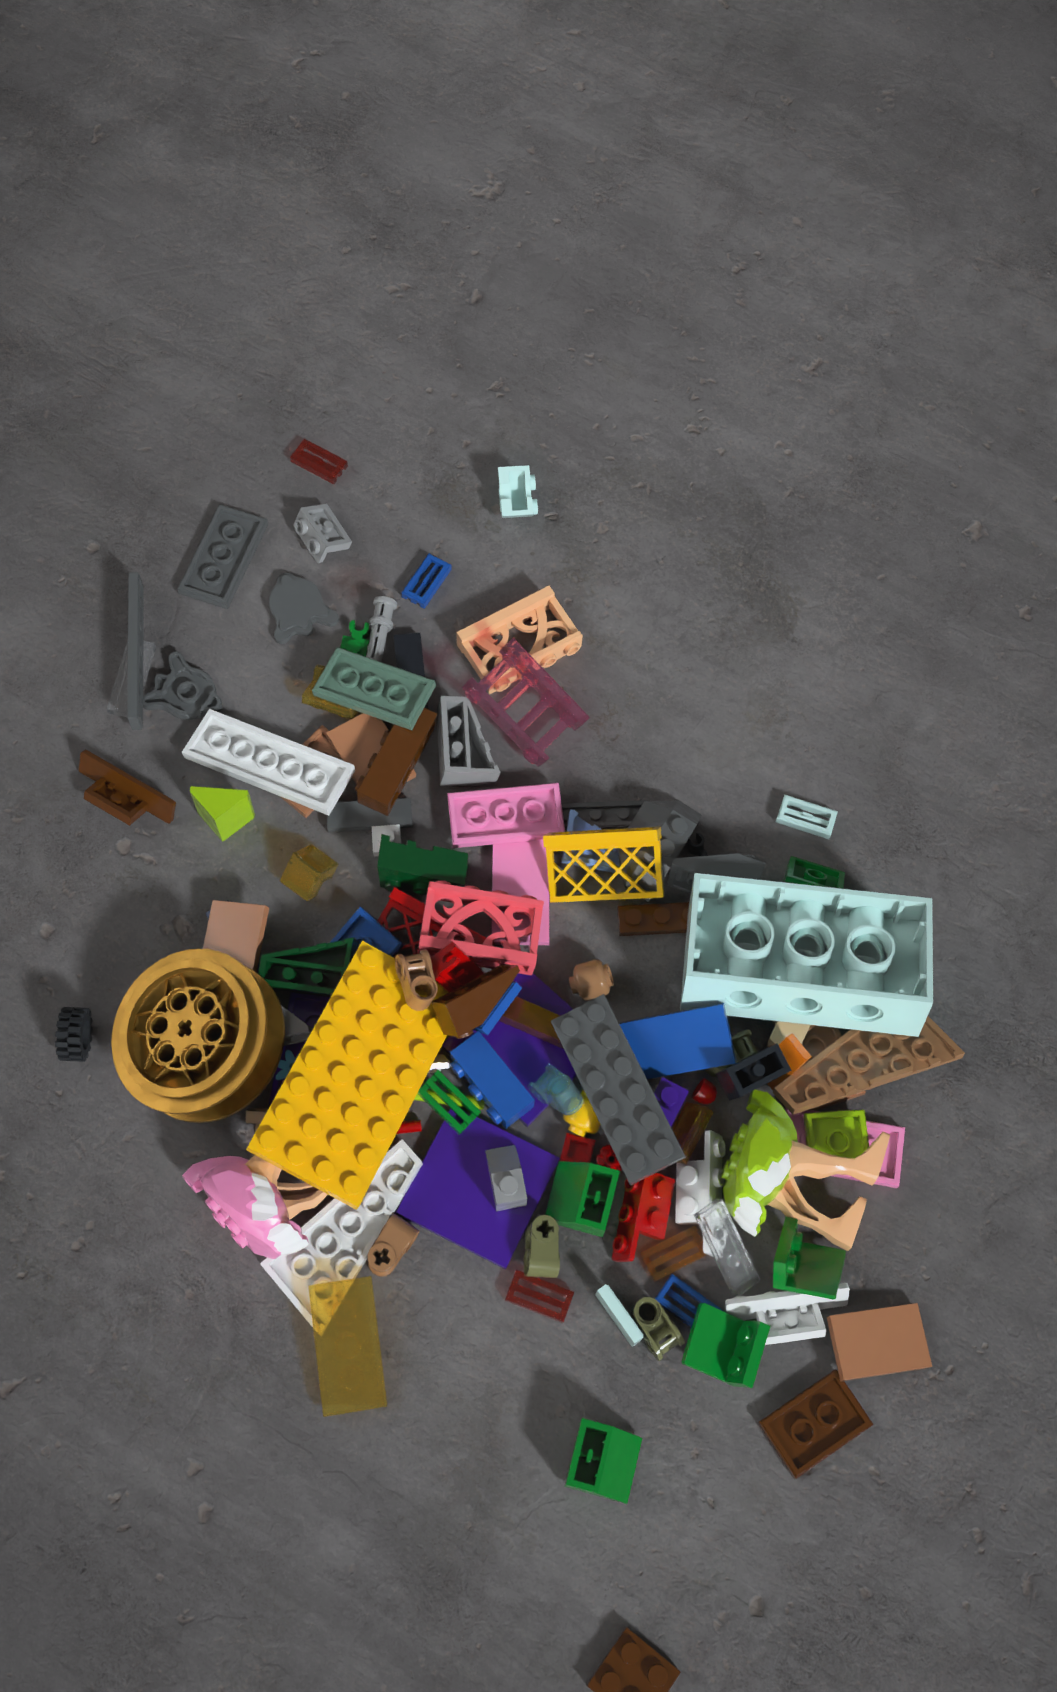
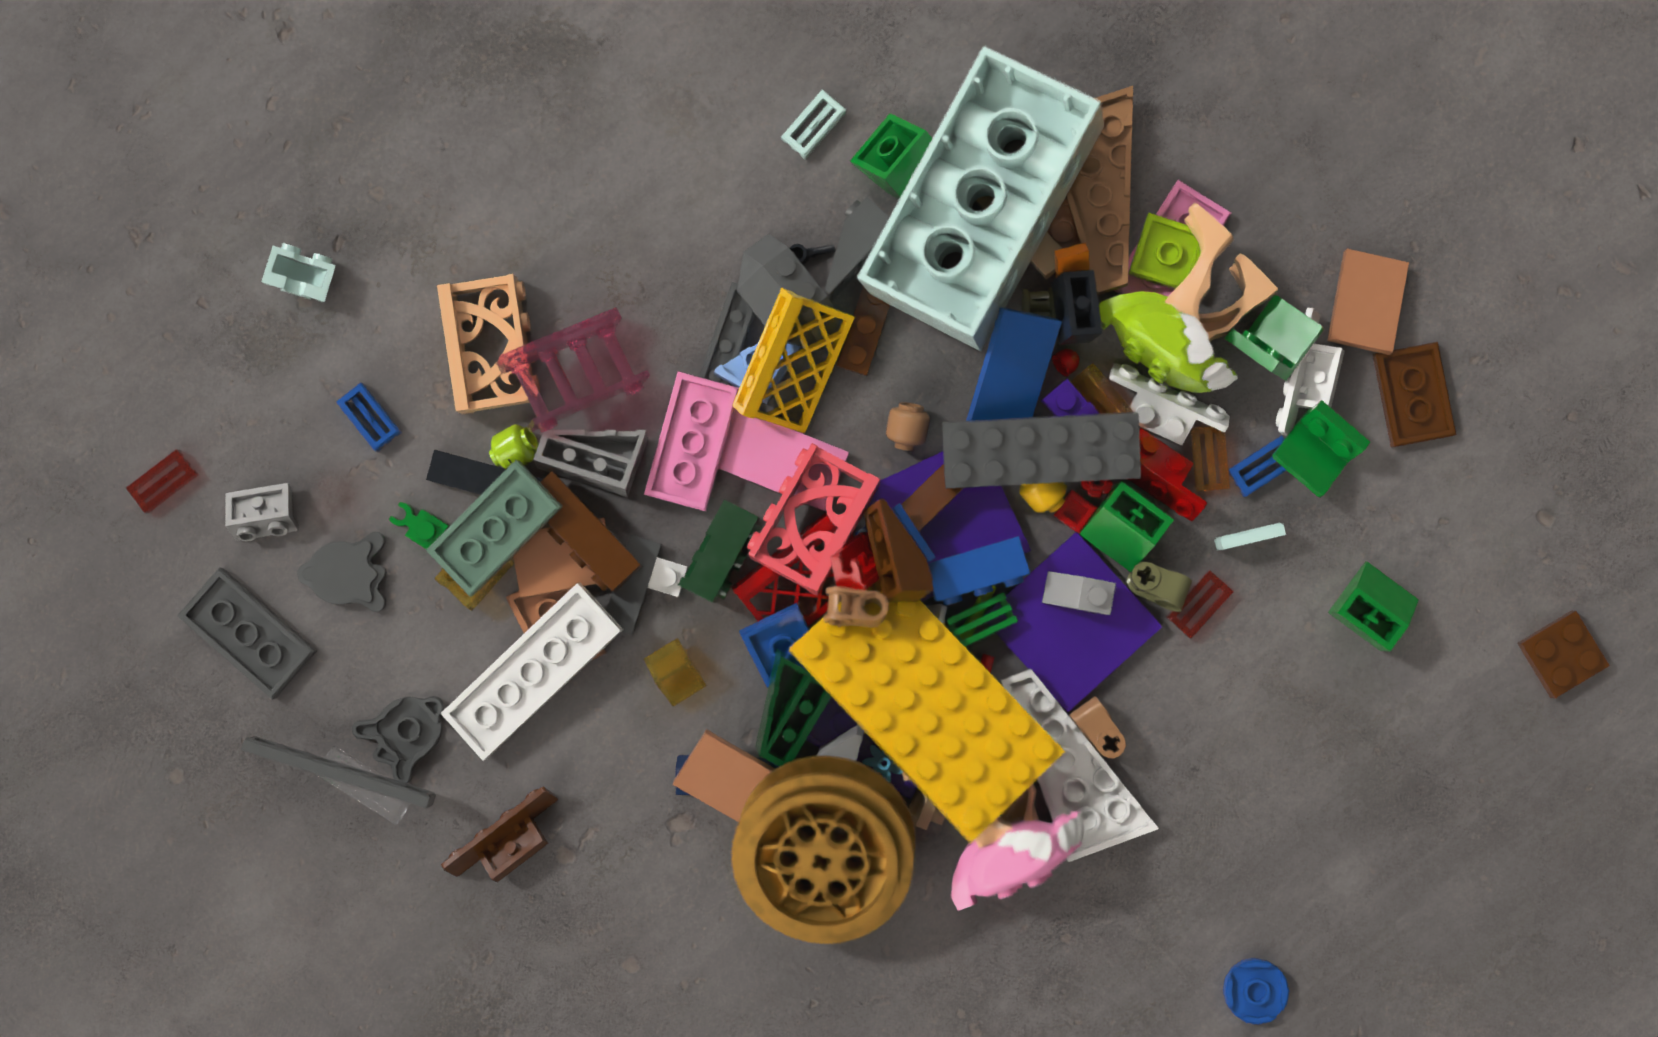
camera: 55 degrees left, 20 degrees up
(73, 1034) = (765, 972): black tyre -> none
(197, 1494) = (1255, 990): none -> blue tile
(223, 809) = (574, 740): lime slope -> none
(347, 1346) = (1178, 805): clear yellow tile -> none
(380, 626) = (405, 493): light grey pin -> none
(447, 683) = (512, 445): none -> lime head
(557, 1091) = (1012, 510): clear light blue piece -> none
(657, 1329) = (1277, 506): olive piece -> none
(727, 1247) = (1230, 407): clear tile -> none

